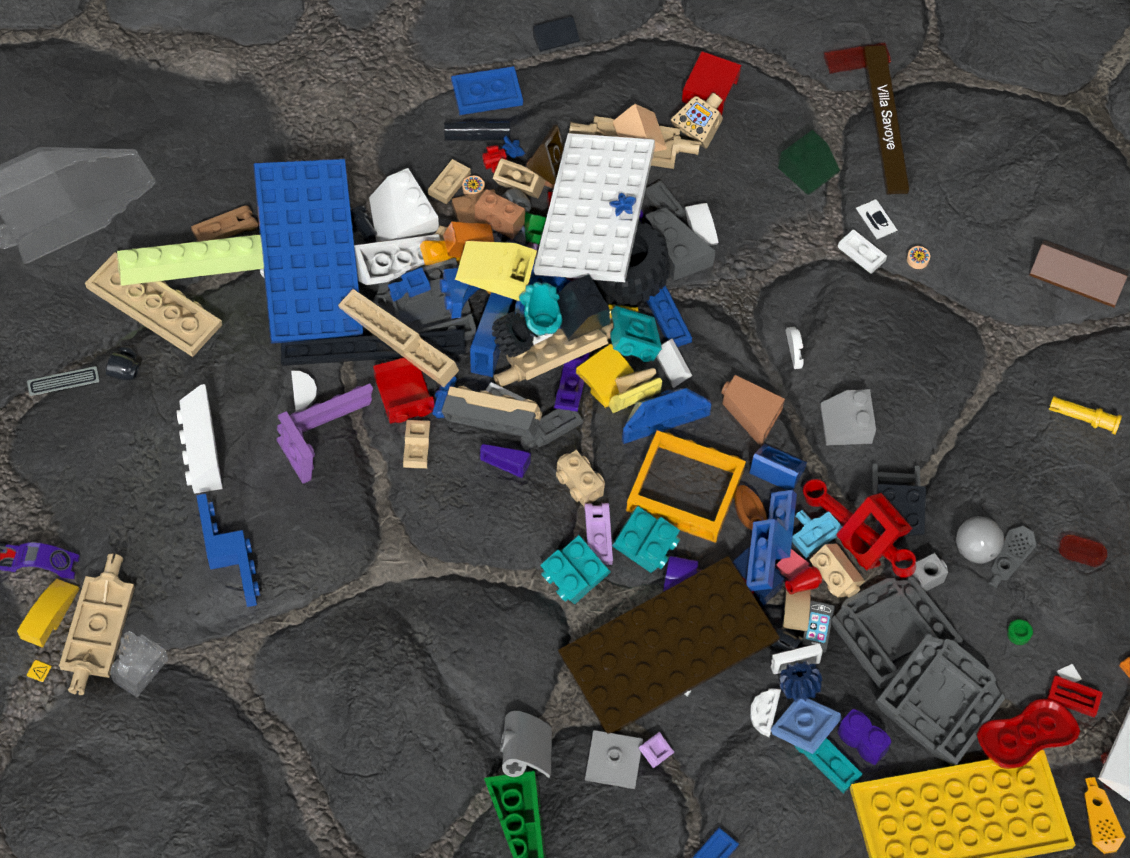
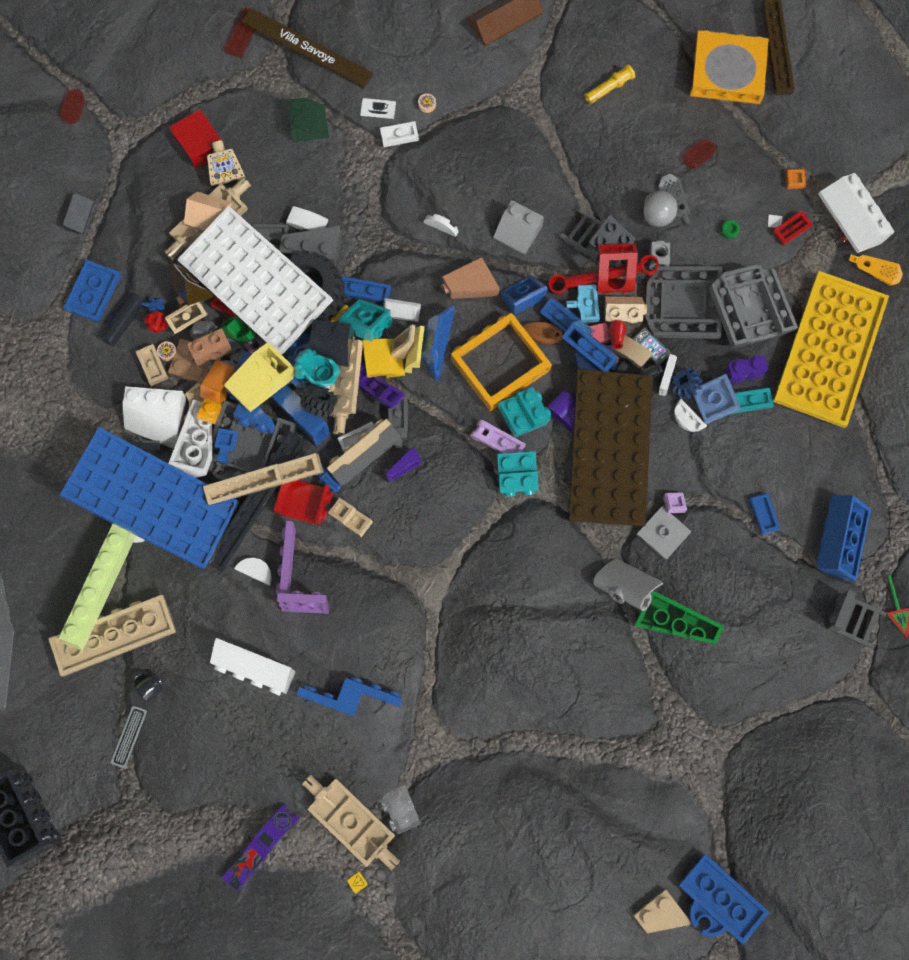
camera: 55 degrees left, 15 degrees up
(47, 612) = (317, 851): yellow slope -> none
(225, 225) = (77, 545): medium nougat plate -> none
(580, 478) = (449, 426): tan brick -> none
(624, 204) = (270, 260): blue plant -> none
(1016, 740) = (805, 280): red plate -> none

